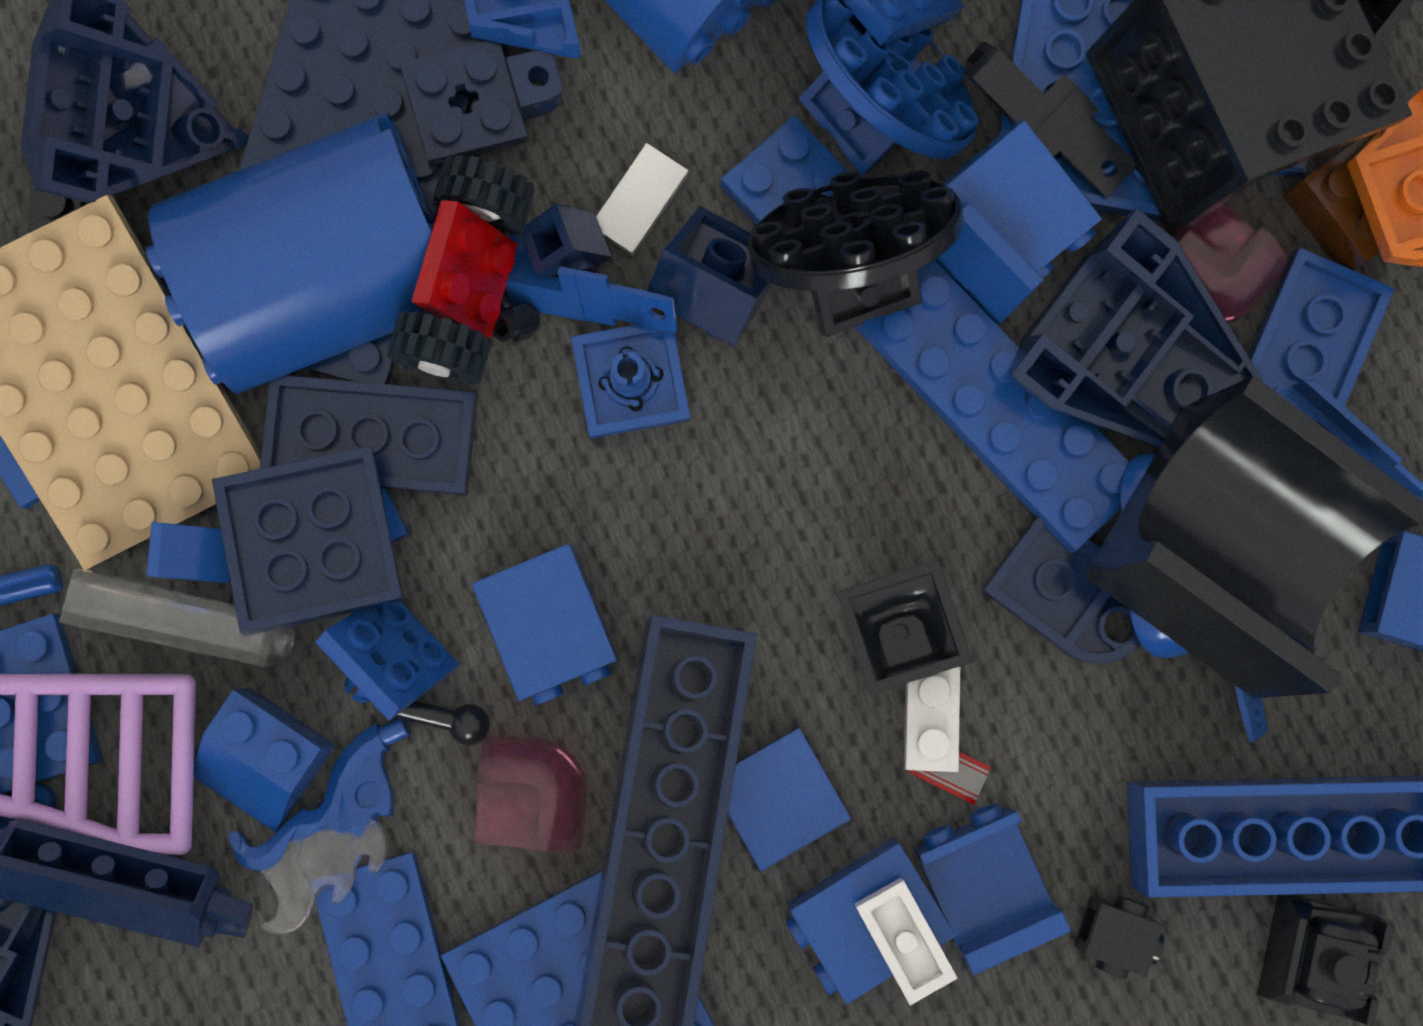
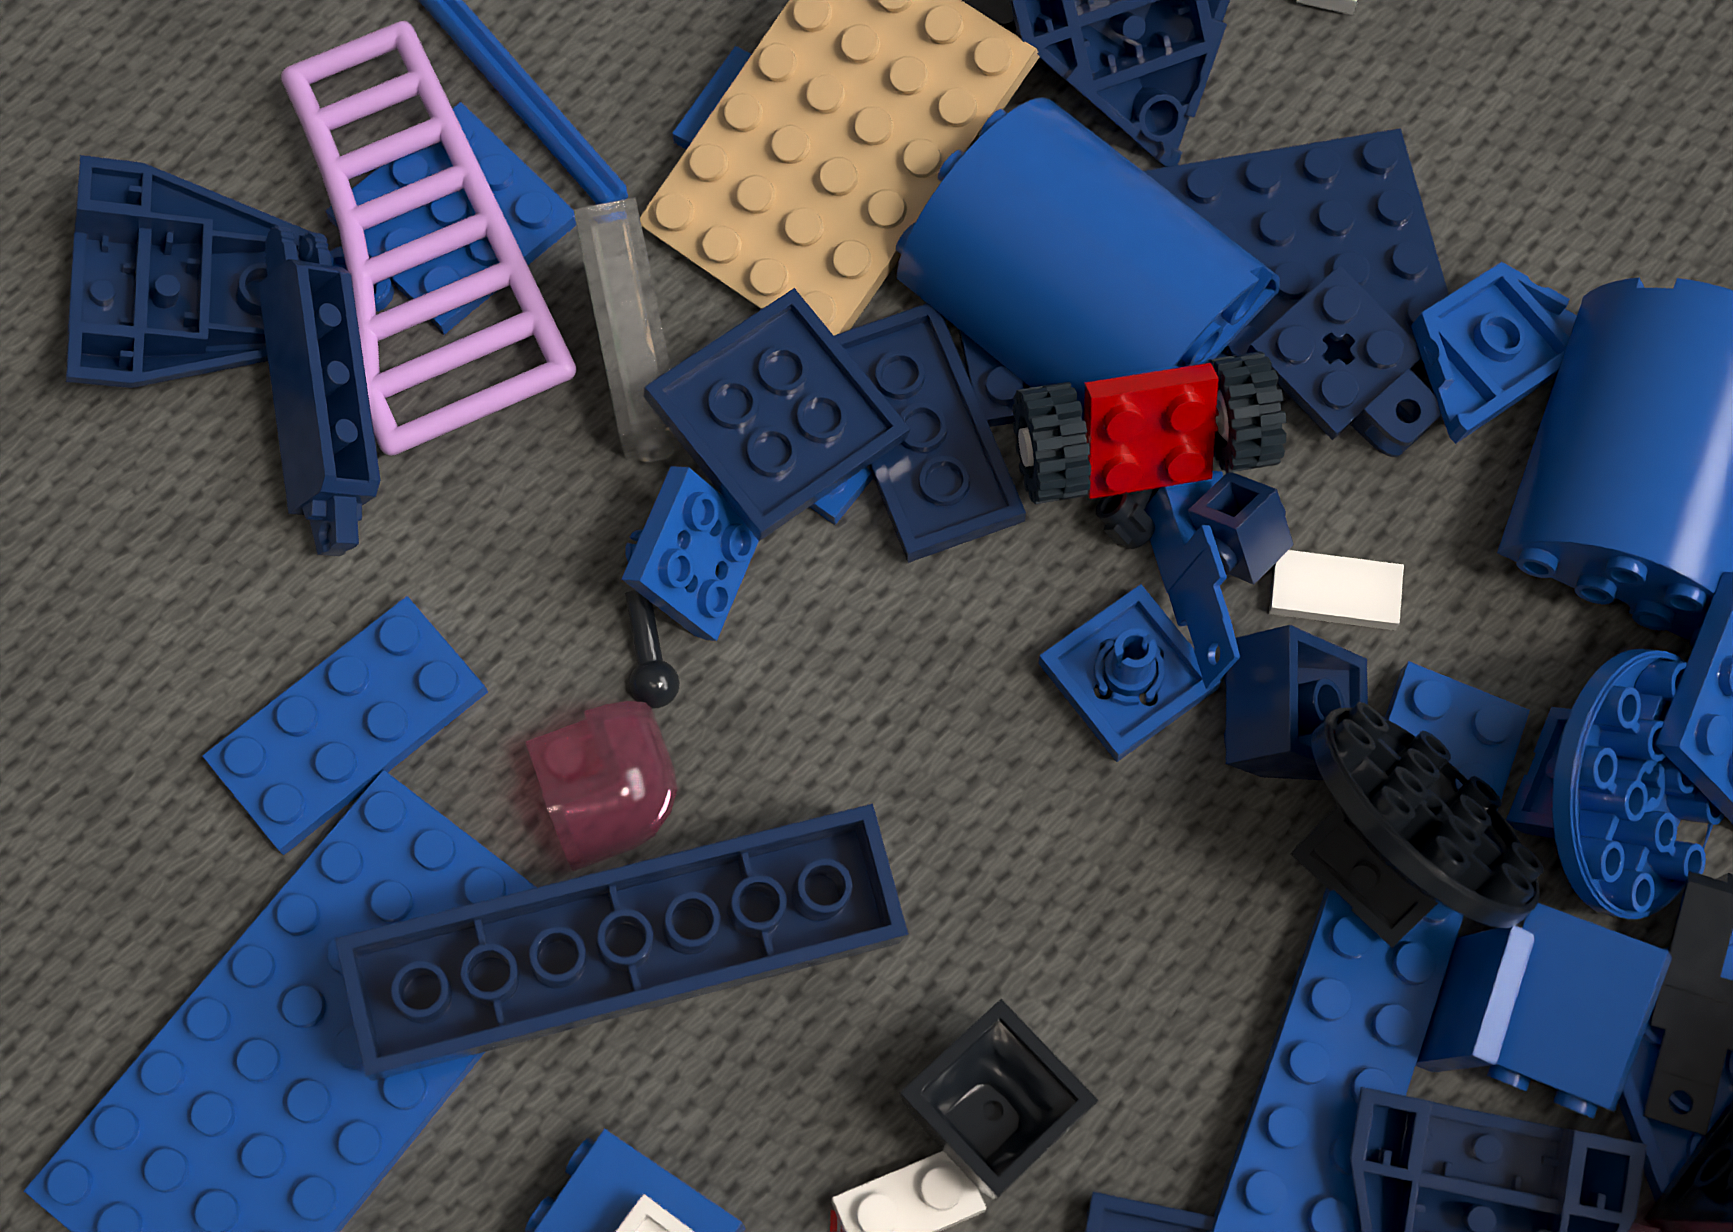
camera: 65 degrees right, 15 degrees down
(187, 553) = (701, 299): blue slope -> none
(259, 756) = (519, 481): blue slope -> none
(328, 842) = (458, 592): piece -> none
(546, 624) = (806, 709): blue brick -> none
(783, 799) = (729, 1070): blue tile -> none

